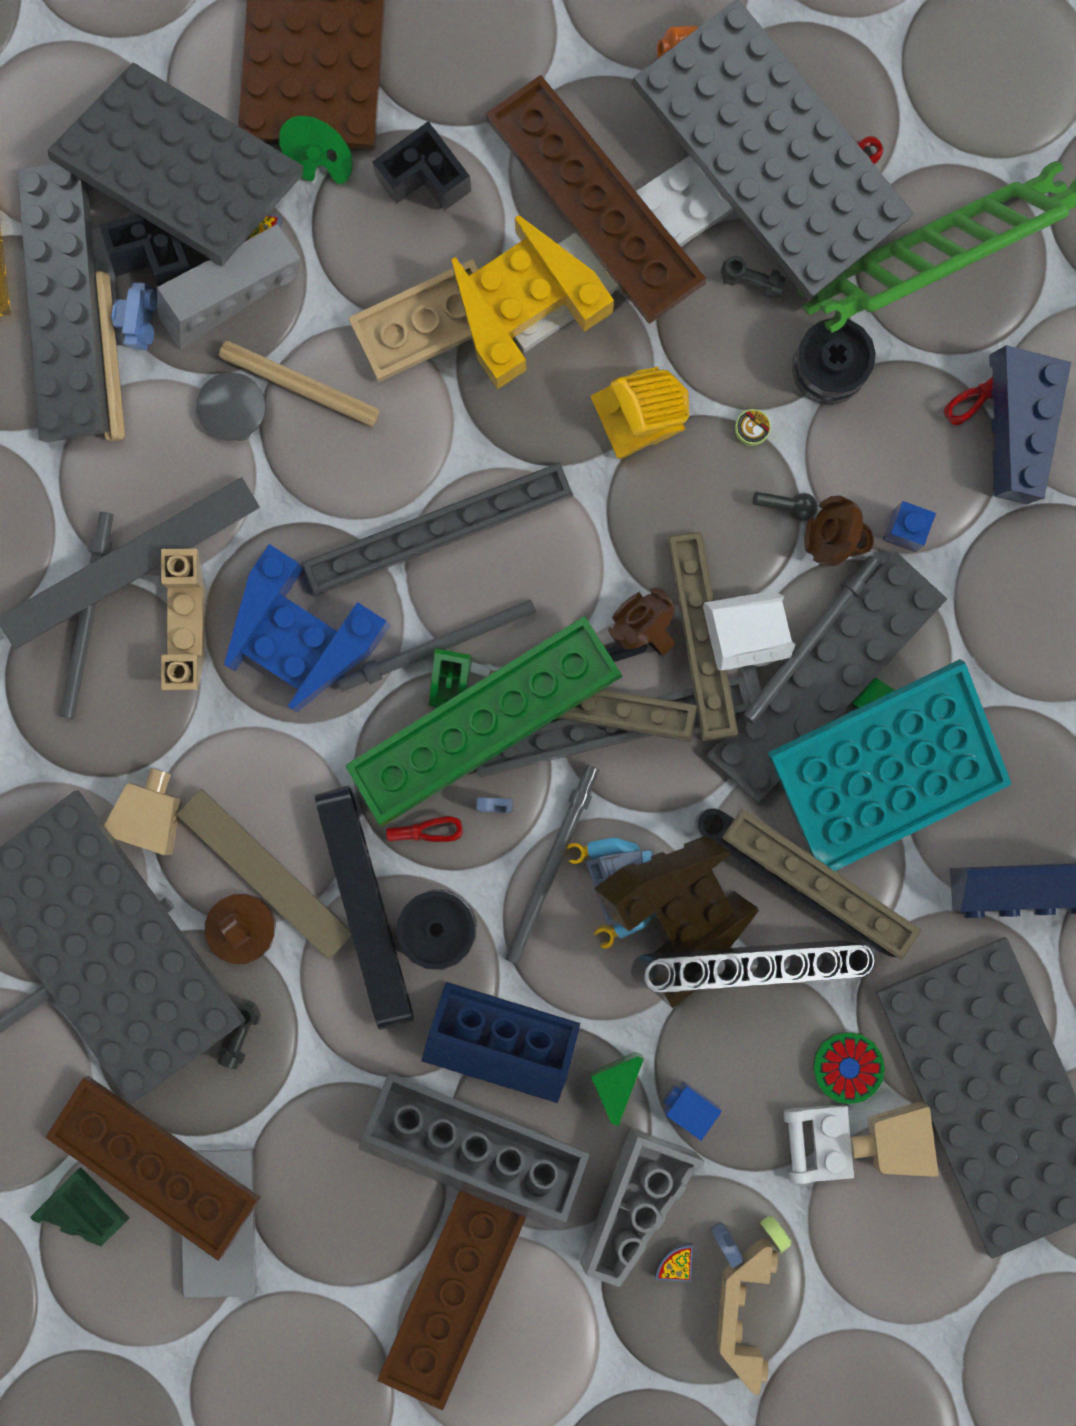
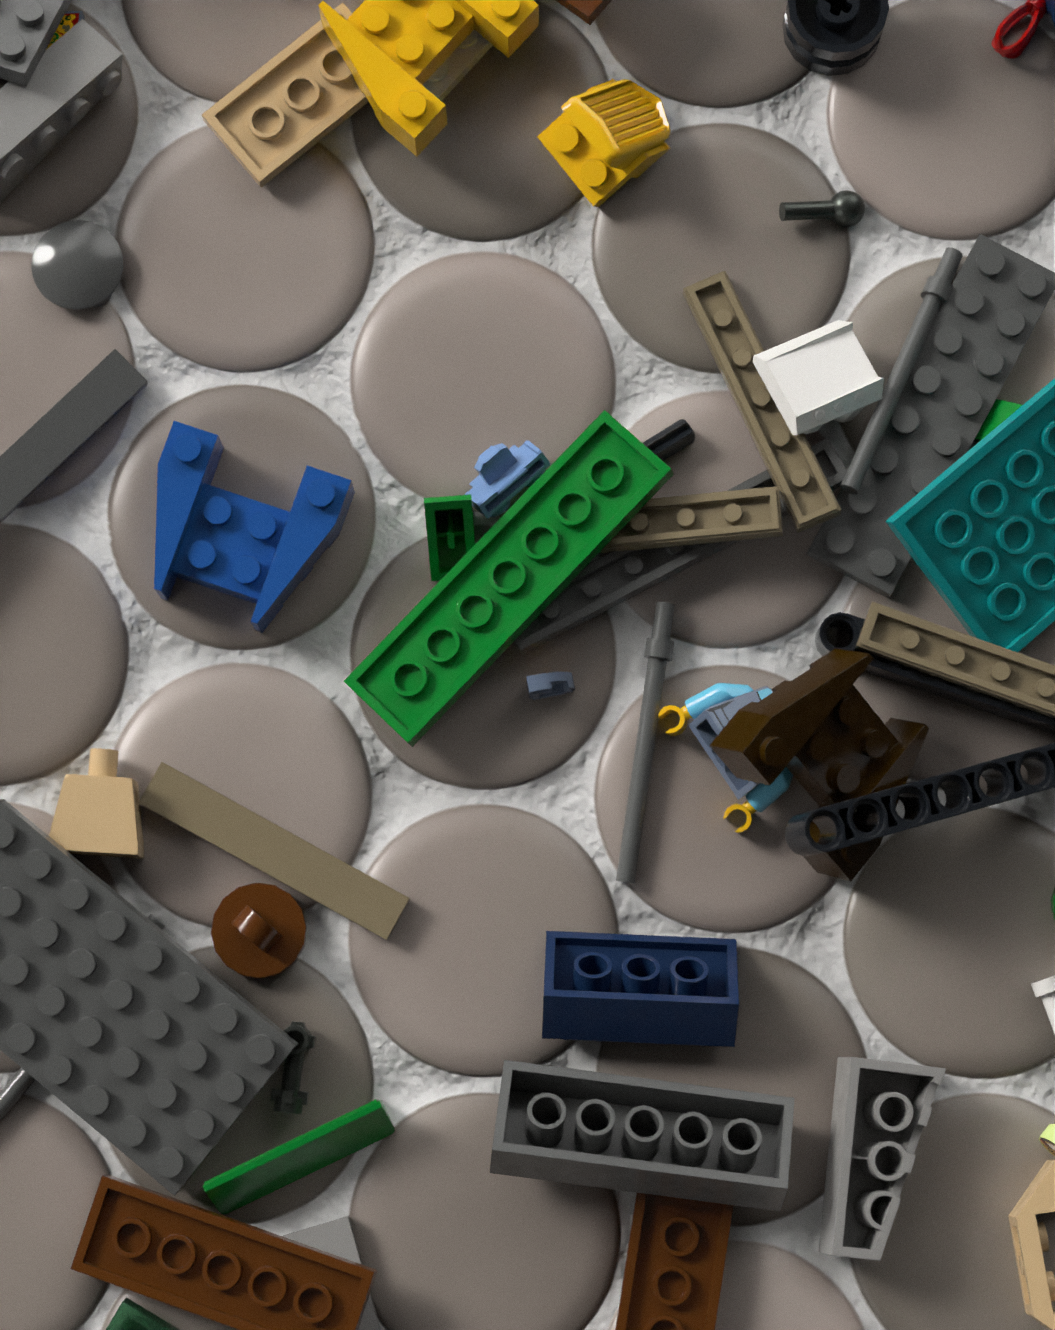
camera: 15 degrees left, 5 degrees down
(185, 619) = (85, 545): tan slope -> none
(227, 1098) = (299, 1157): none -> green slope
(299, 383) = (158, 214): tan axle -> none
(364, 907) = (416, 860): black beam -> none
(374, 671) = (349, 554): dark grey bar -> none
(415, 831) = (456, 747): red piece -> none
(437, 529) = (383, 354): dark grey tile -> none
(444, 949) = (503, 835): black wheel -> none
(500, 643) = (503, 475): none -> medium blue piece
(615, 1084) = (803, 1004): green slope -> none
(644, 621) = (684, 400): reddish brown tile -> none
(676, 1264) = (945, 1221): tile -> none
(691, 1109) = (910, 1011): blue brick -> none
(727, 1244) = (1009, 1181): sand blue tile -> none
(752, 427) = (755, 125): tile -> none
(837, 532) = (898, 226): reddish brown tile -> none
(909, 526) = (988, 197): blue brick -> none

